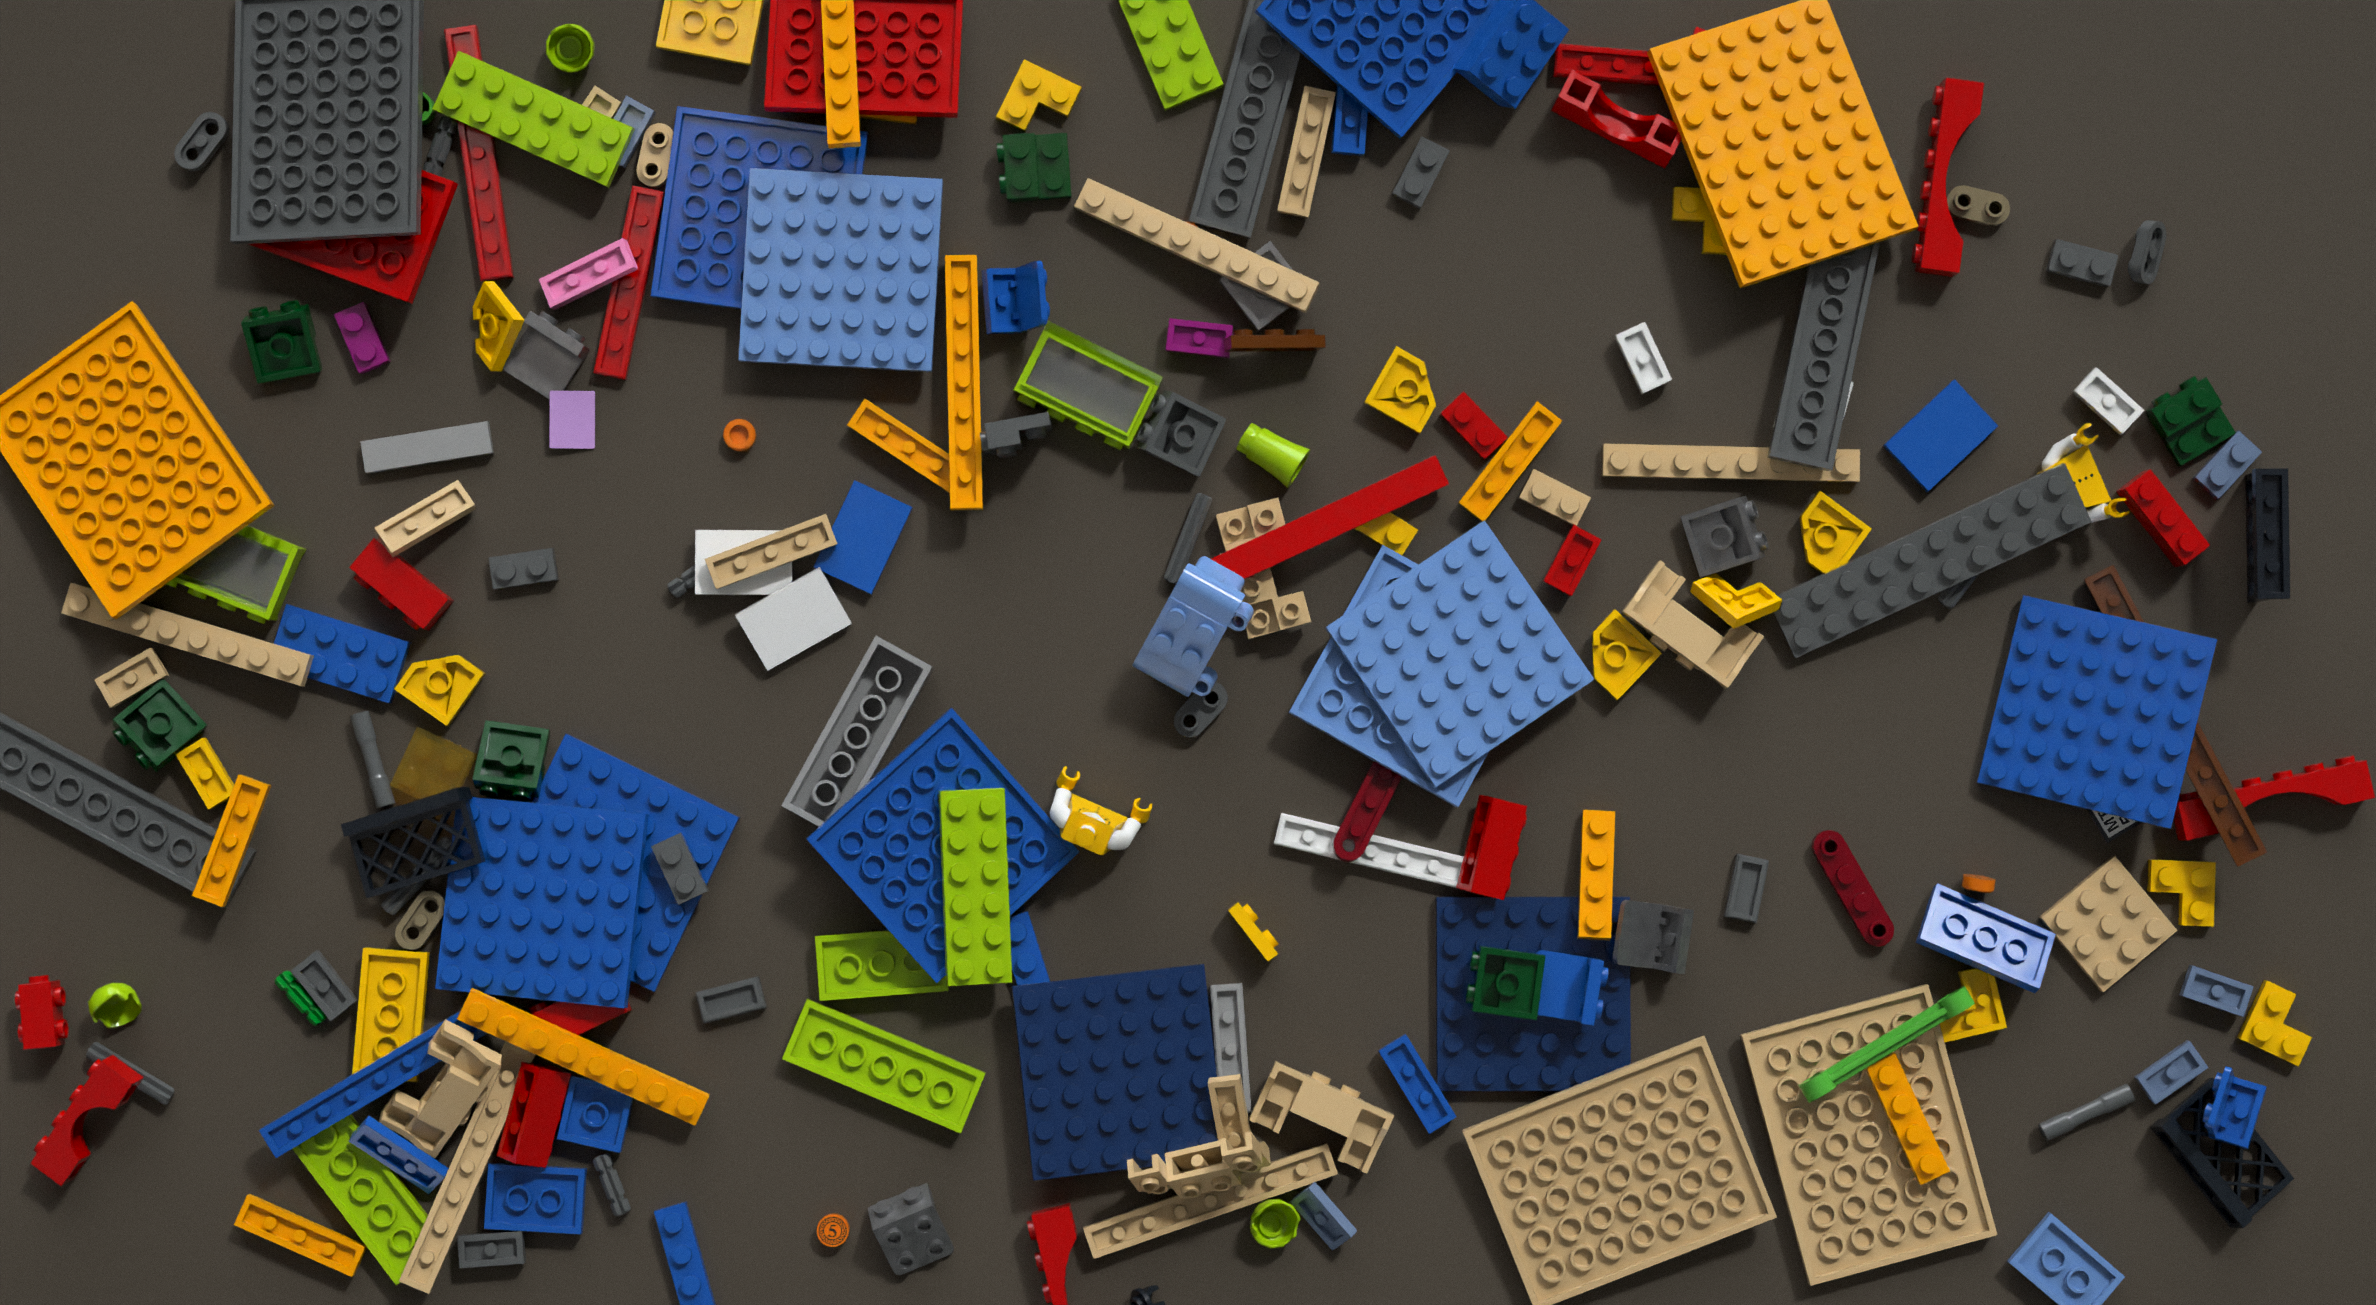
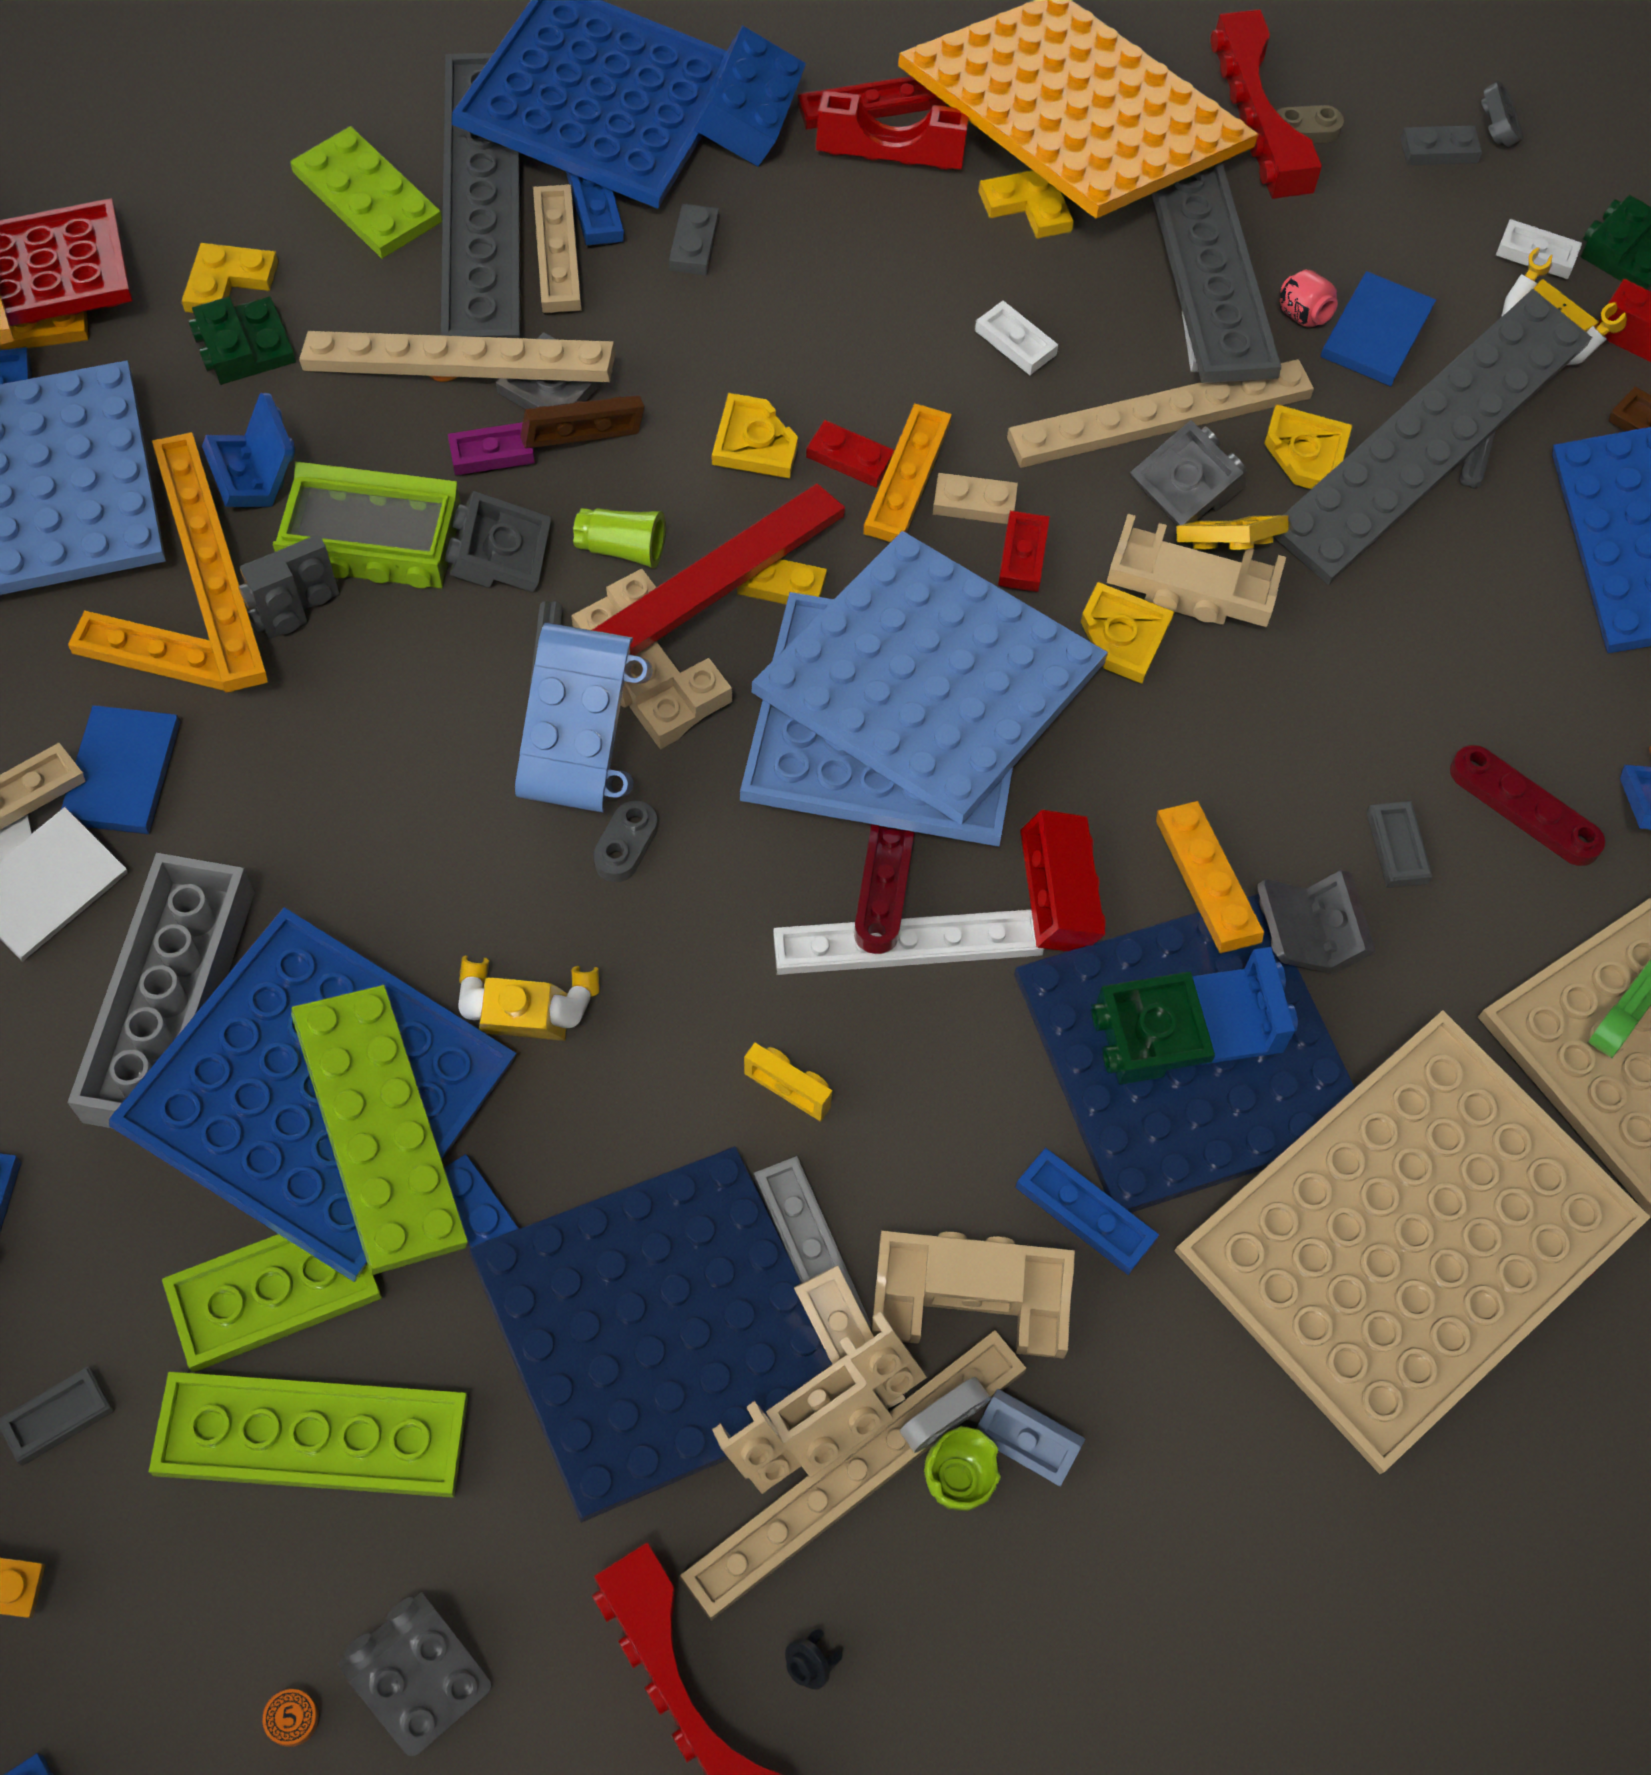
camera: 20 degrees left, 25 degrees down
(1274, 1190) = (945, 1414): none -> light grey beam
(1893, 394) = (1308, 298): none -> coral head

